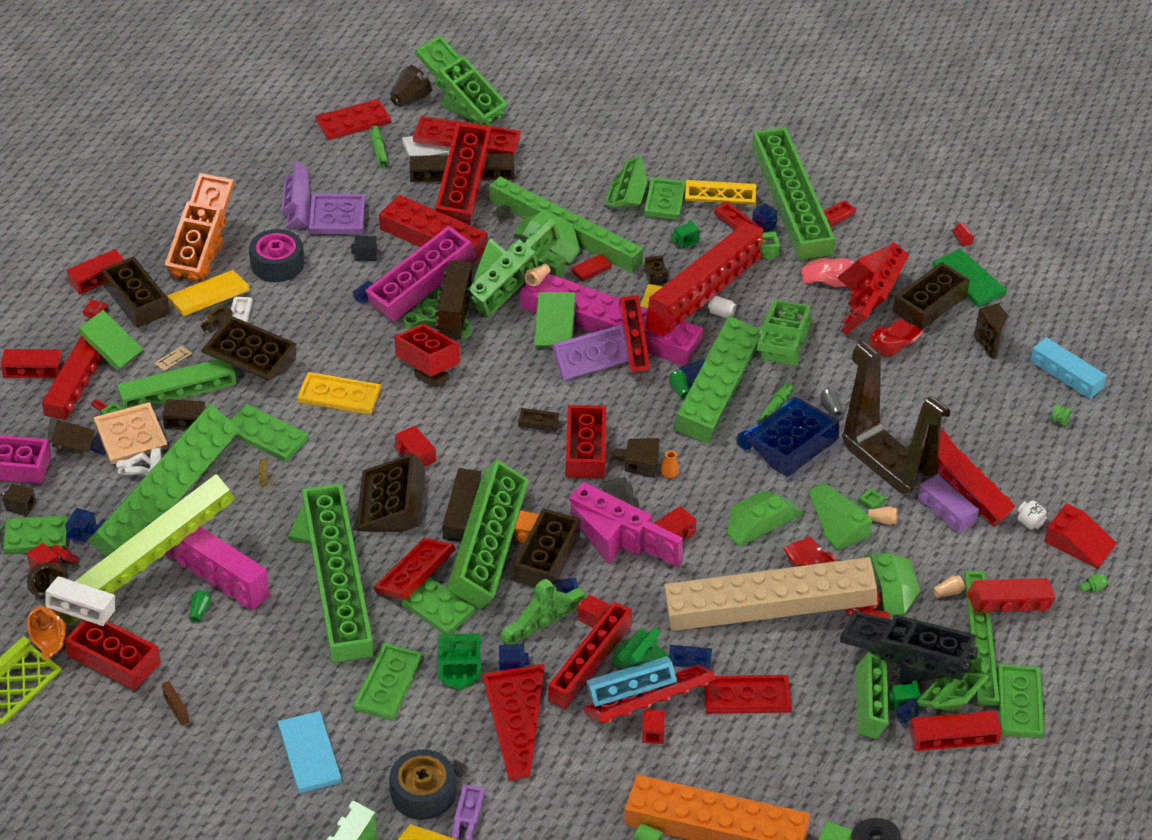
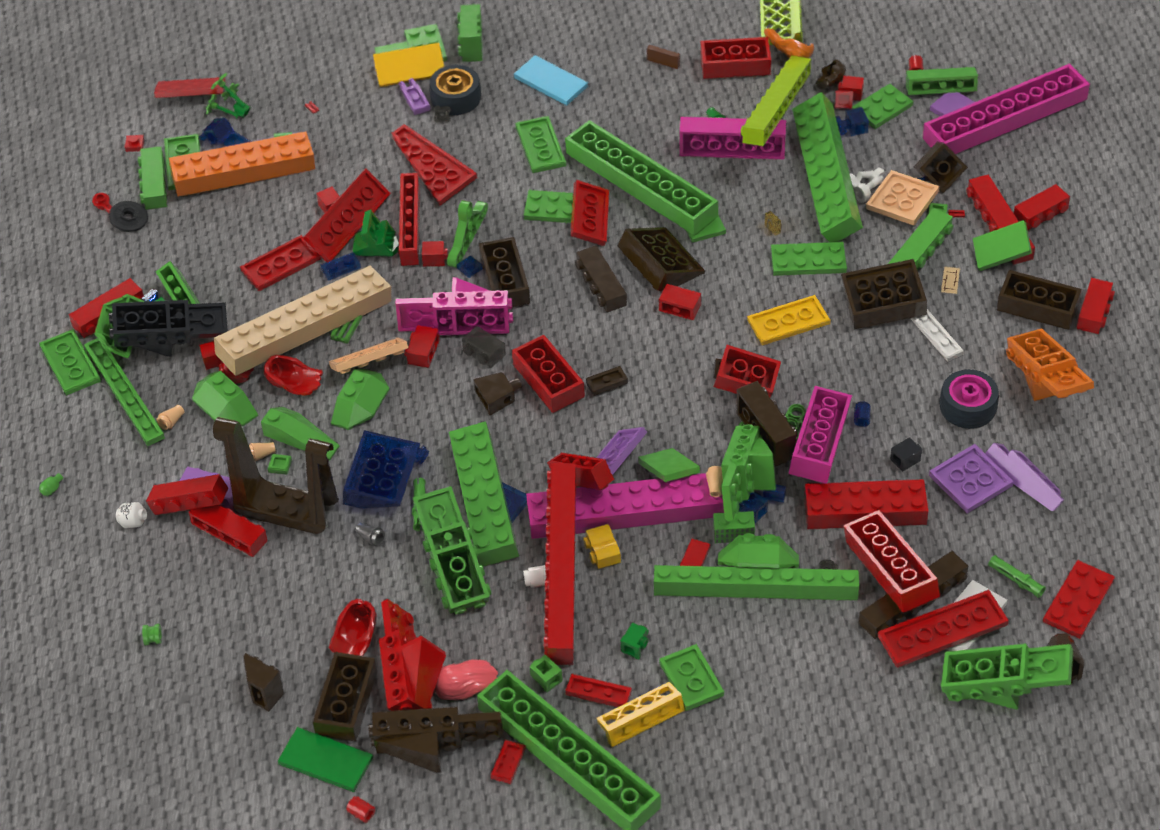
camera: 150 degrees right, 5 degrees up
(19, 499) = (919, 114): dark brown brick -> none
(80, 601) = (780, 51): white brick -> none
(94, 307) = (1058, 276): red tile -> none
(181, 413) = (881, 232): dark brown brick -> none
(208, 293) = (986, 340): yellow tile -> none
(216, 317) = (952, 323): dark brown plate -> none
(459, 659) = (503, 172): green piece -> none
(488, 534) = (556, 256): bright green brick -> none
(512, 657) = (465, 191): clear blue brick -> none
(524, 525) = (538, 287): orange brick -> none
(628, 185) = (732, 655): bright green wedge -> none
(631, 681) = (352, 219): medium azure brick -> none
(655, 270) = (630, 582): dark brown brick -> none
(670, 466) = (465, 396): orange cone -> none
(679, 382) = (517, 478): green cone -> none
(730, 539) = (362, 357): none -> light nougat plate
(765, 217) = (572, 703): clear blue brick -> none
(874, 232) = (422, 743): none -> dark brown wedge
(1011, 595) = (112, 424): red brick -> none
(1068, 368) = (169, 692): medium azure brick -> none
(1079, 536) = (82, 518): red slope -> none

